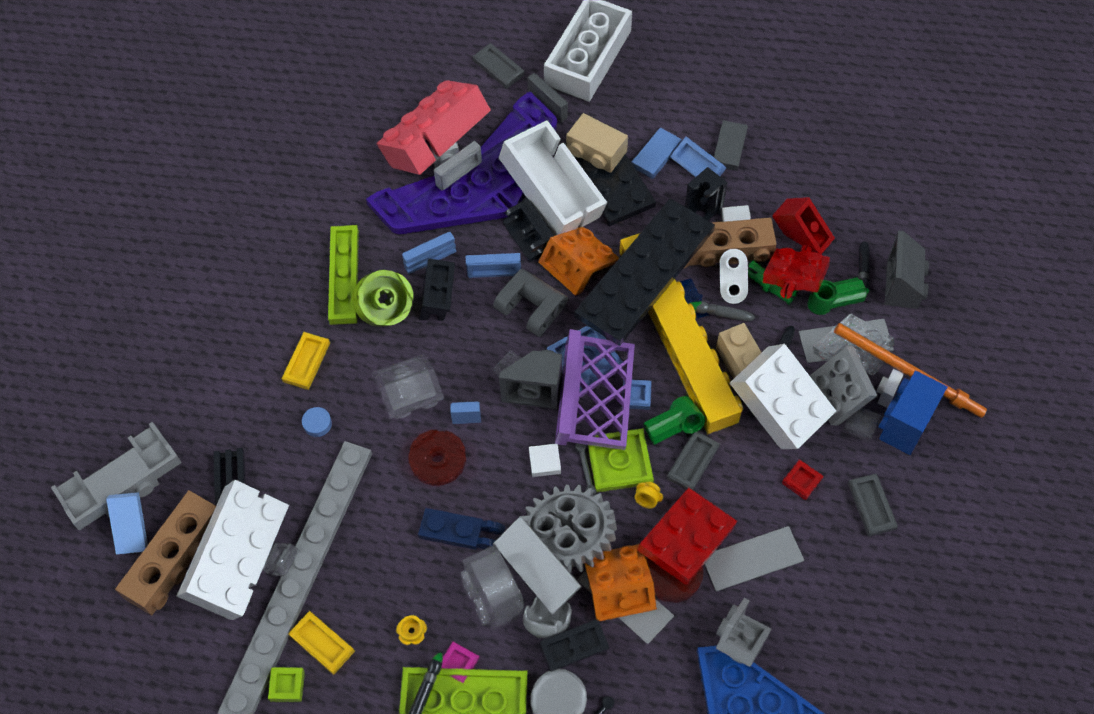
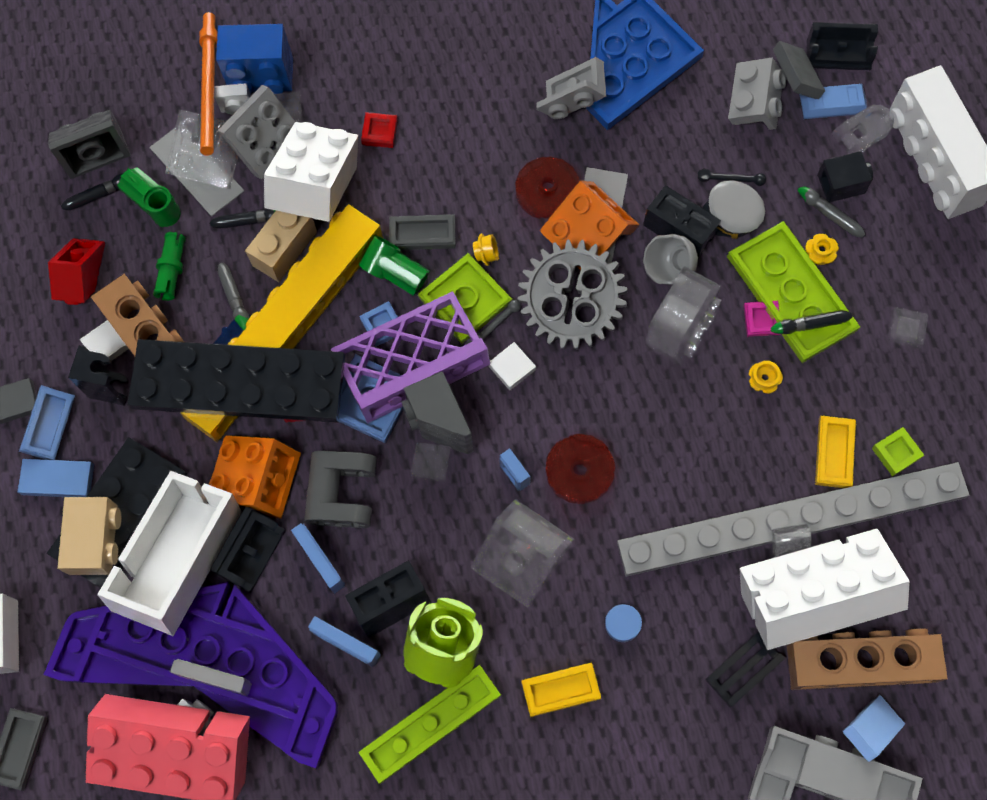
camera: 120 degrees left, 10 degrees up
(457, 529) = (639, 400): dark blue hinge -> none
(537, 565) = (632, 293): light grey piece -> none
(548, 97) = (40, 647): dark grey tile -> none
(687, 536) = (507, 189): red plate -> none
(733, 276) = (189, 300): white plate -> none
(753, 558) = (486, 133): light grey piece -> none
(796, 270) = (146, 237): red plate -> none
(872, 505) = (367, 62): dark grey tile -> none

